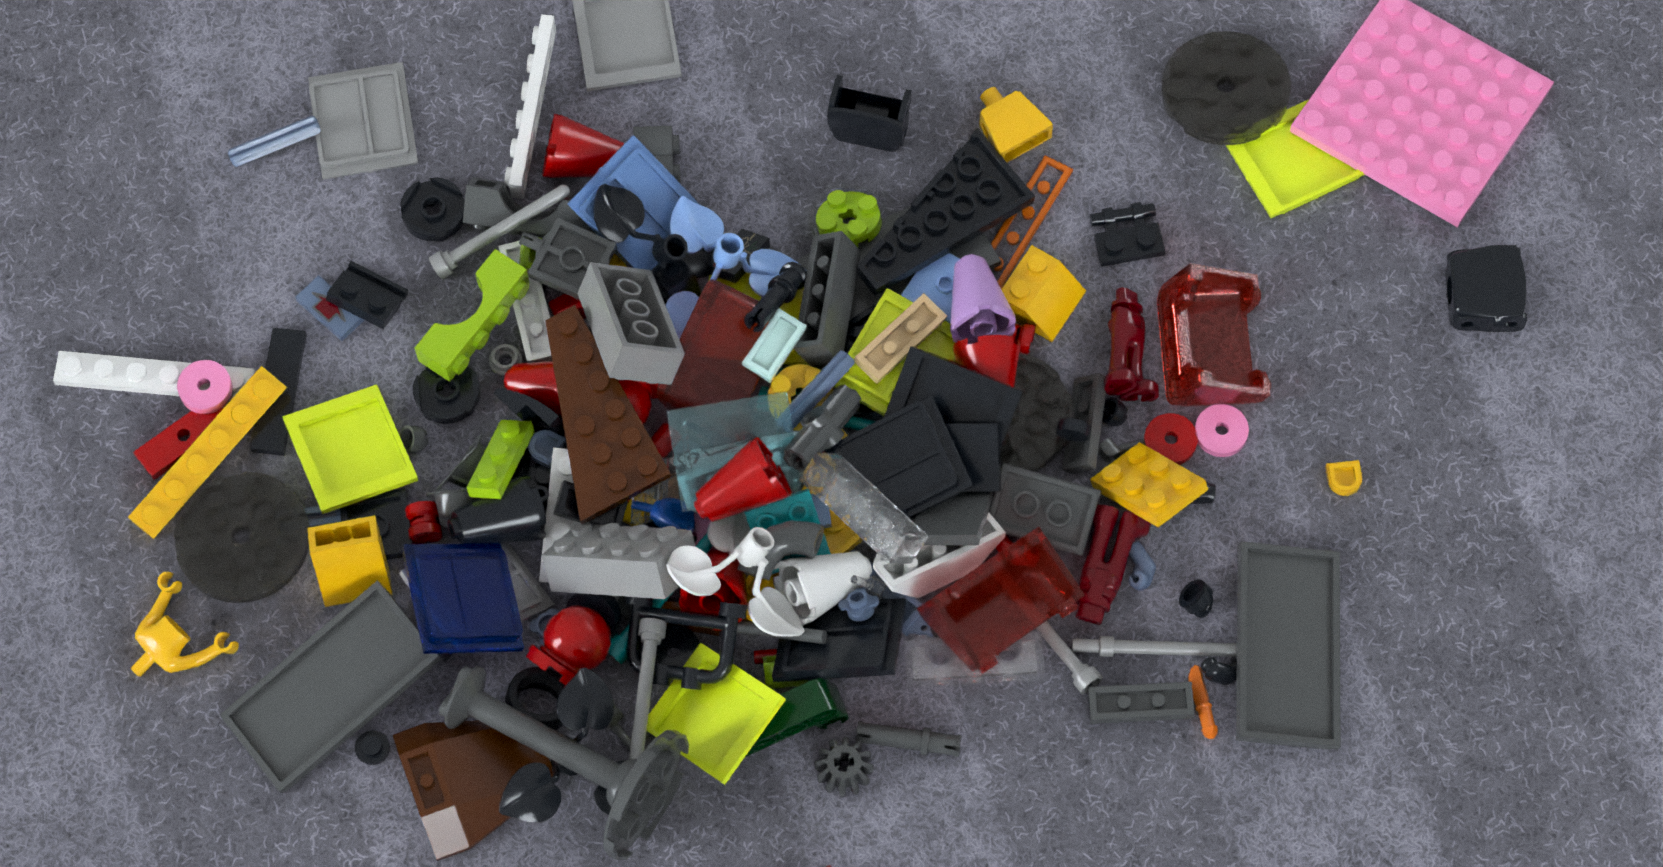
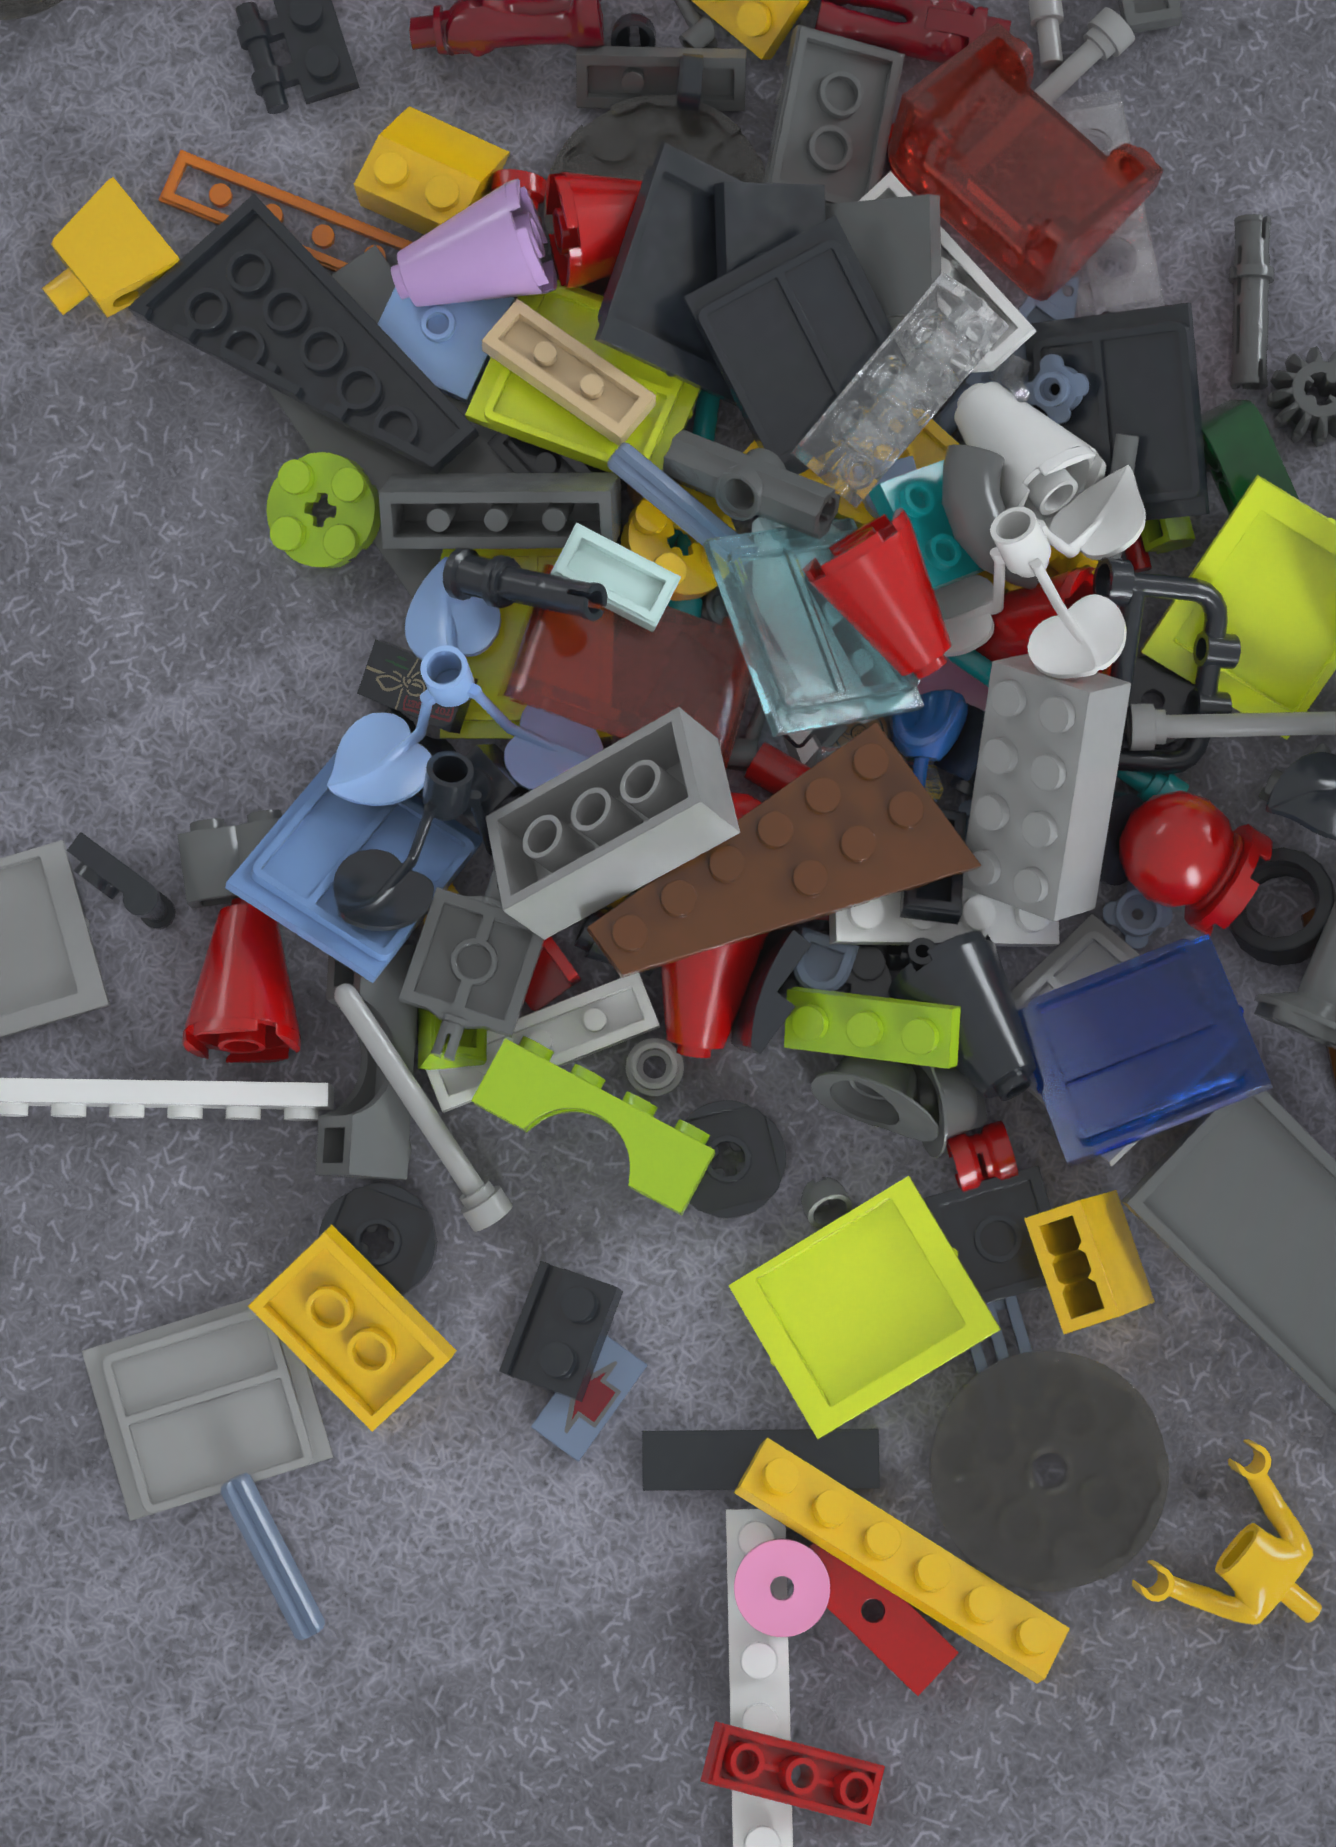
camera: 90 degrees left, 15 degrees up
(114, 363) = (764, 1766): none -> red tile
(386, 187) = (352, 1328): none -> yellow plate
(654, 88) = (112, 876): none -> black plate
(868, 117) = (128, 486): black piece -> none

